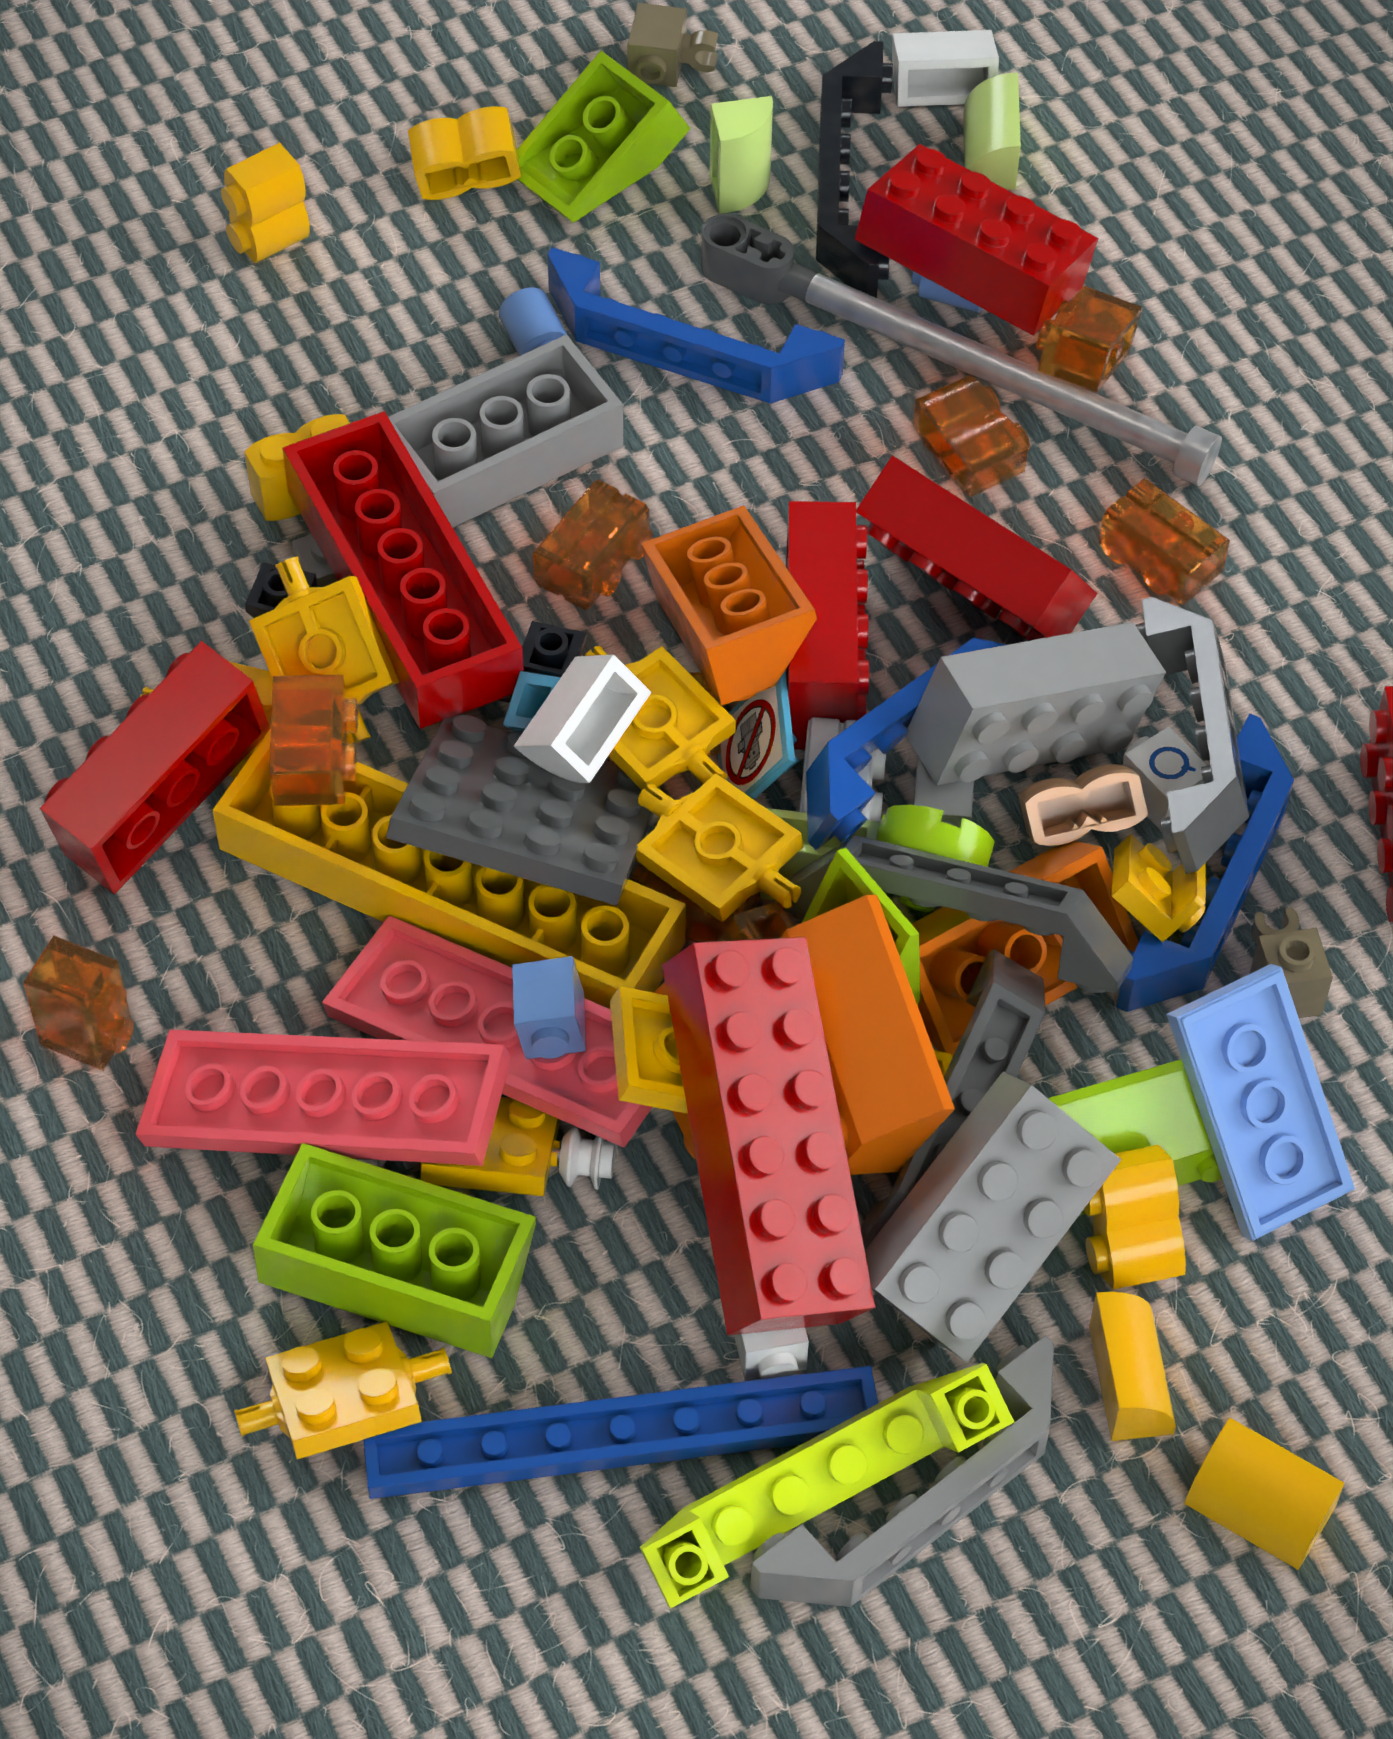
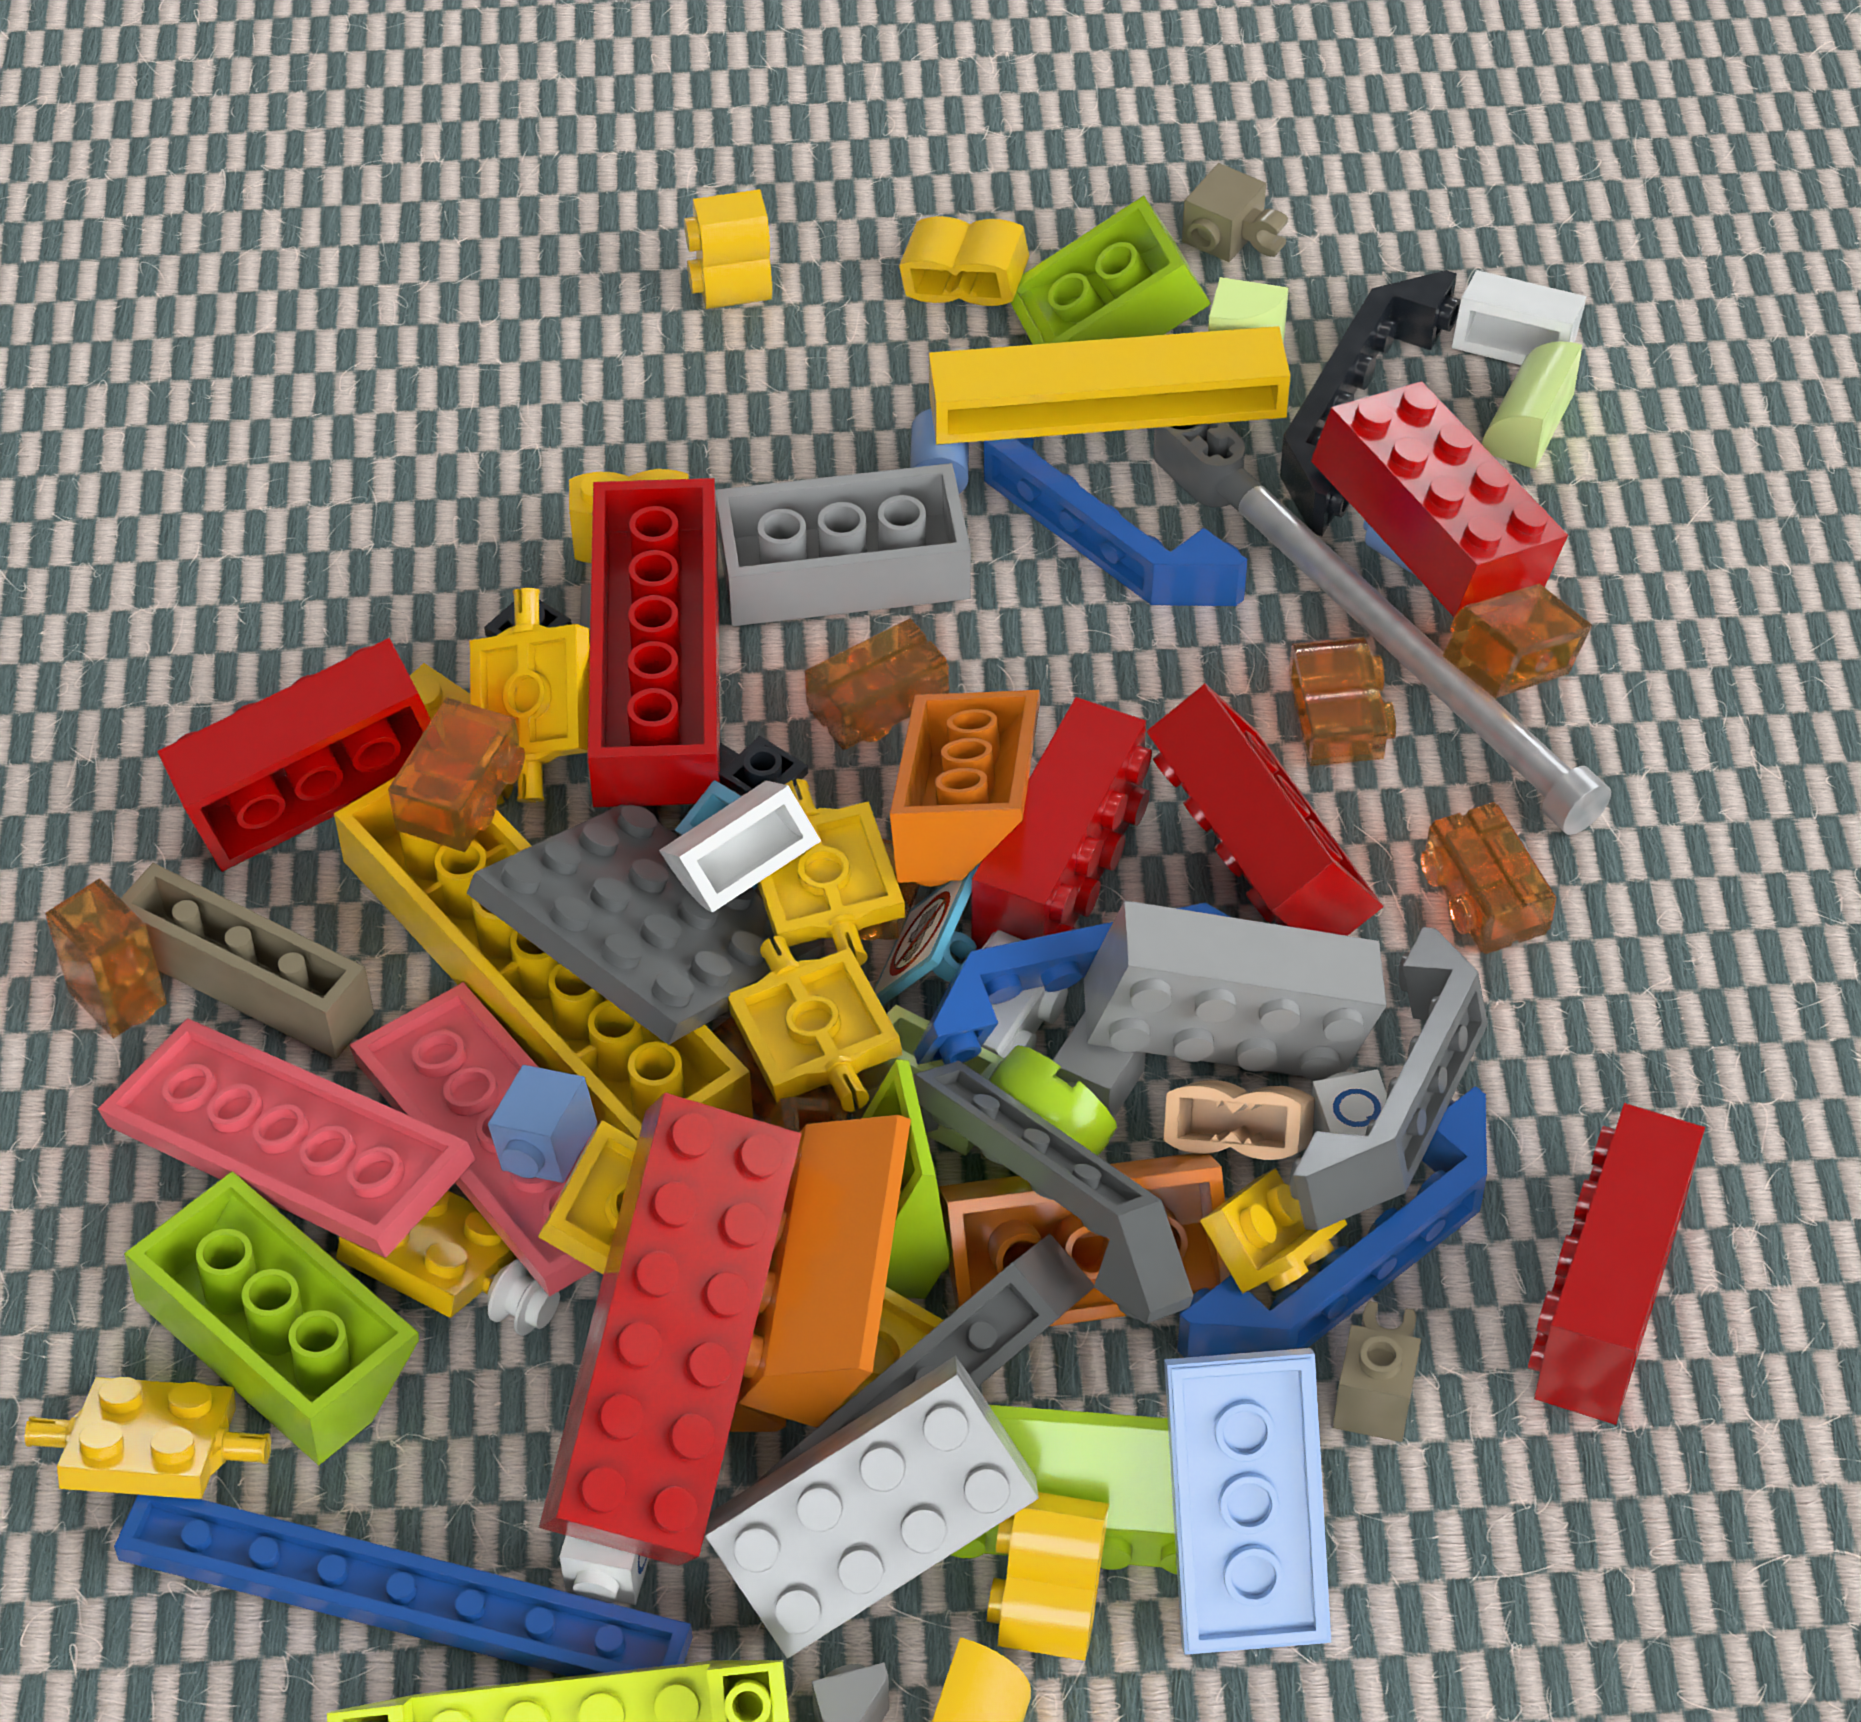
camera: 25 degrees right, 5 degrees down
(206, 961) = (251, 962): none -> dark tan brick
(659, 226) = (1108, 385): none -> yellow brick

